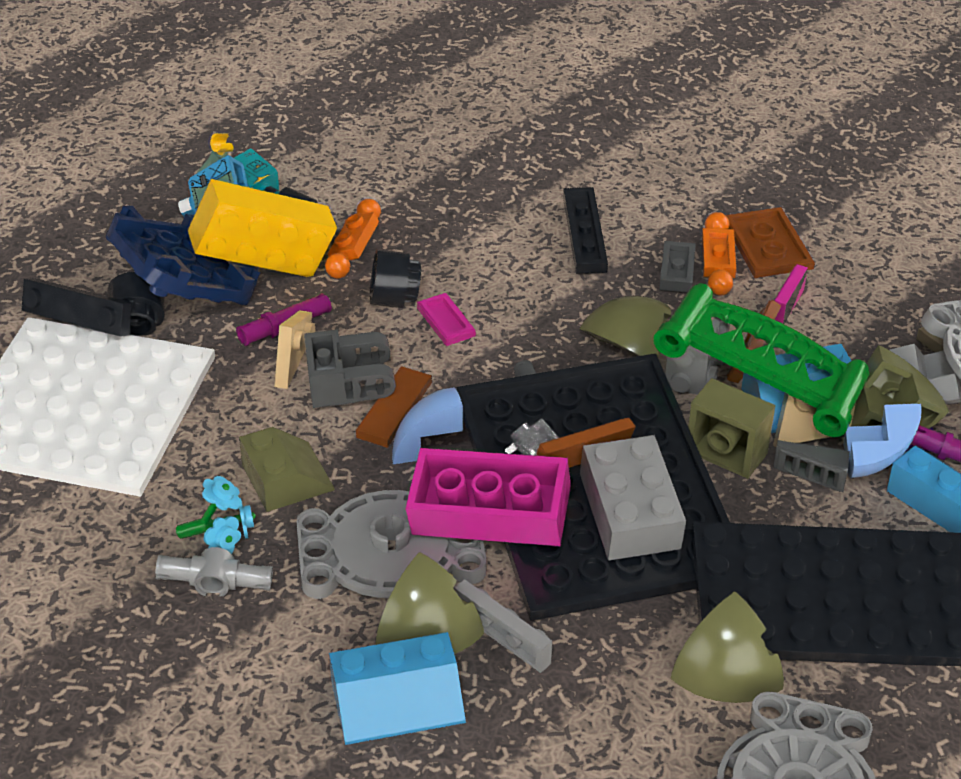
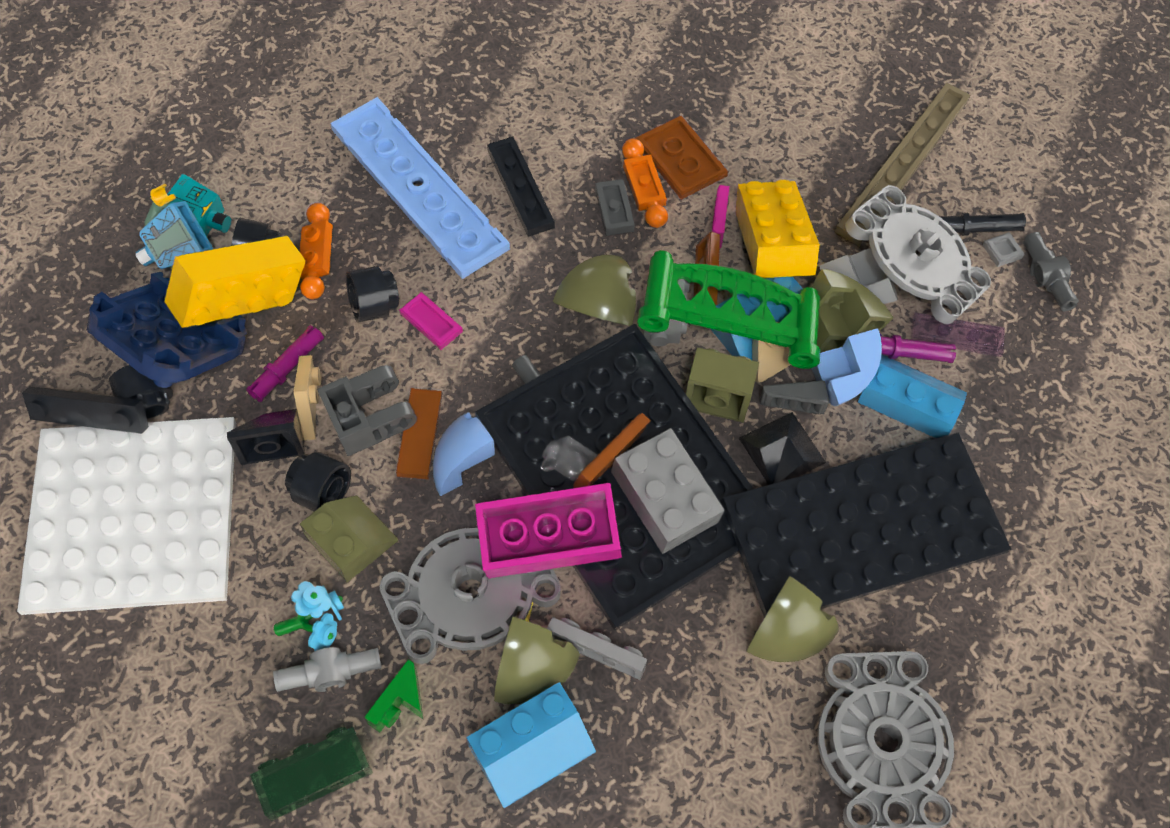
camera: 20 degrees left, 20 degrees up
(159, 652) = (310, 772): none -> clear green brick
(238, 368) = (268, 438): none -> black slope
(276, 407) = (317, 480): none -> black piece
(277, 608) = (401, 690): none -> green slope
(481, 210) = (436, 206): none -> light blue piece
(781, 505) = (782, 449): none -> black slope
(844, 308) = (776, 229): none -> yellow brick

